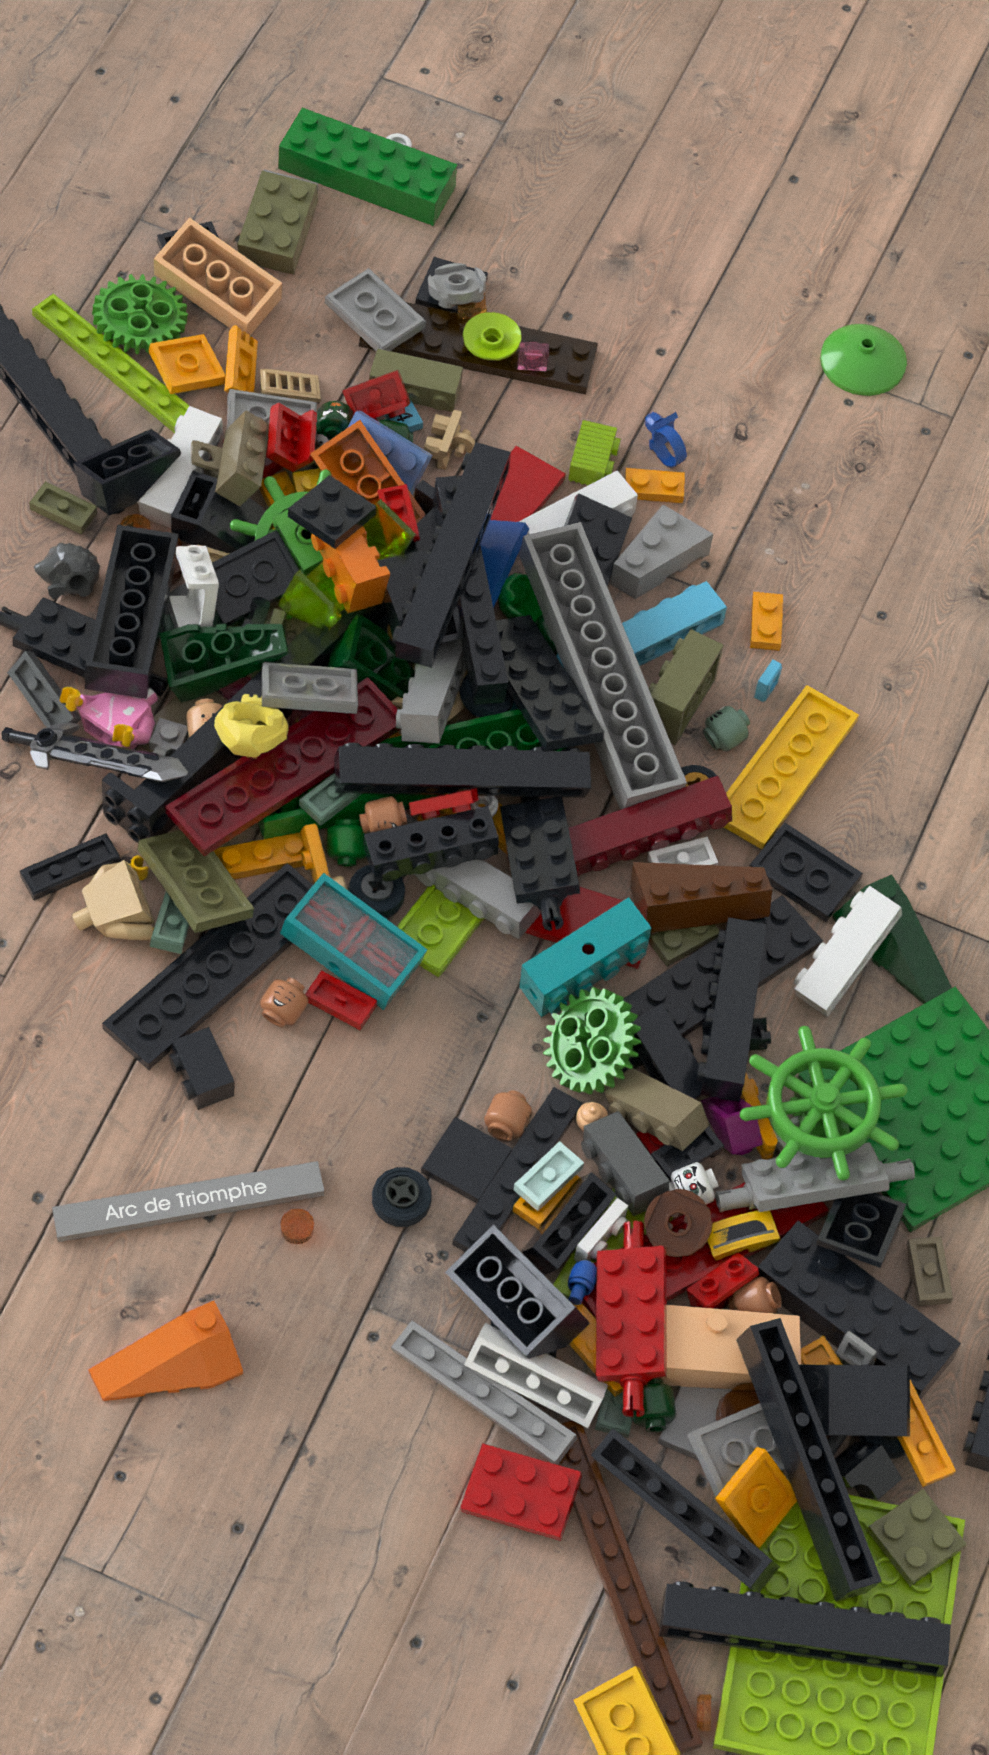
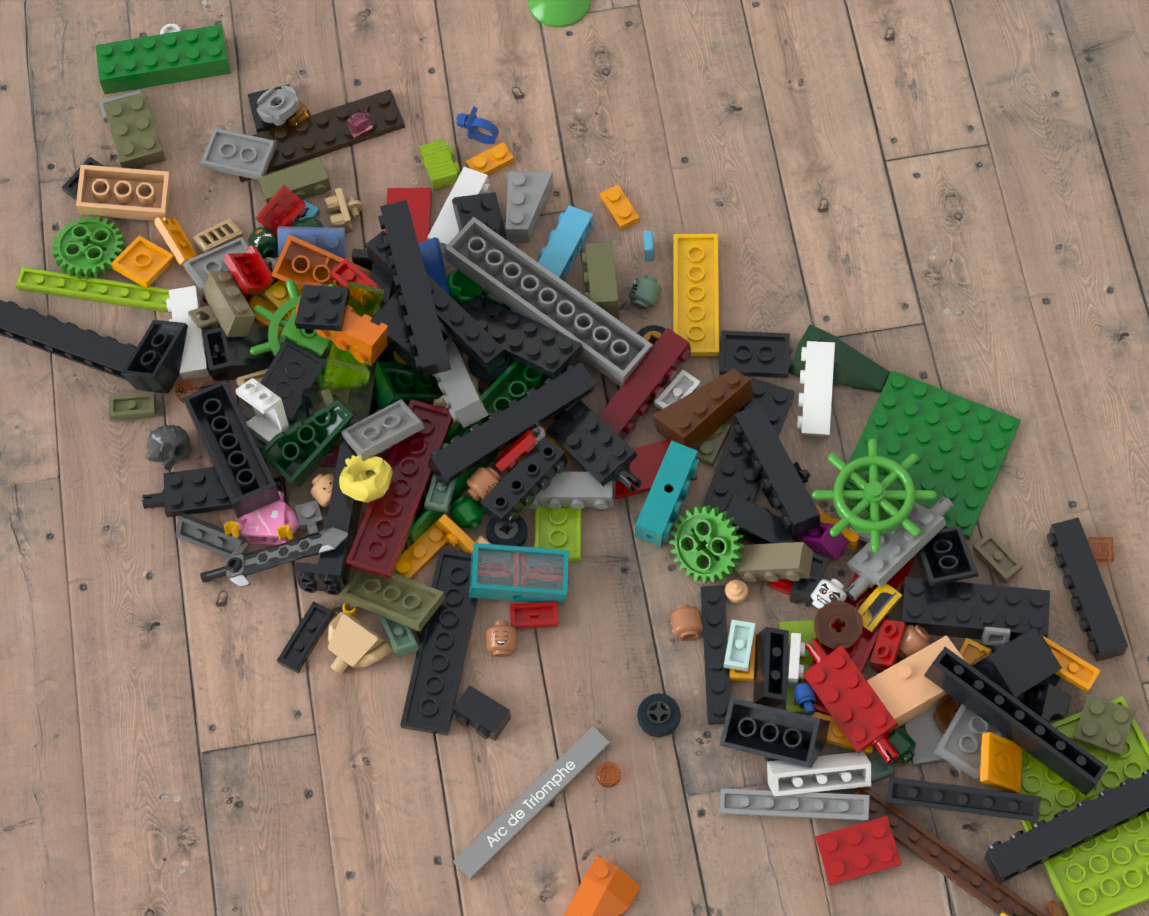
camera: 20 degrees left, 5 degrees up
(465, 1160) = (680, 666): black tile -> none
(492, 336) = (322, 119): lime dish -> none
(624, 1162) = (778, 607): dark grey brick -> none

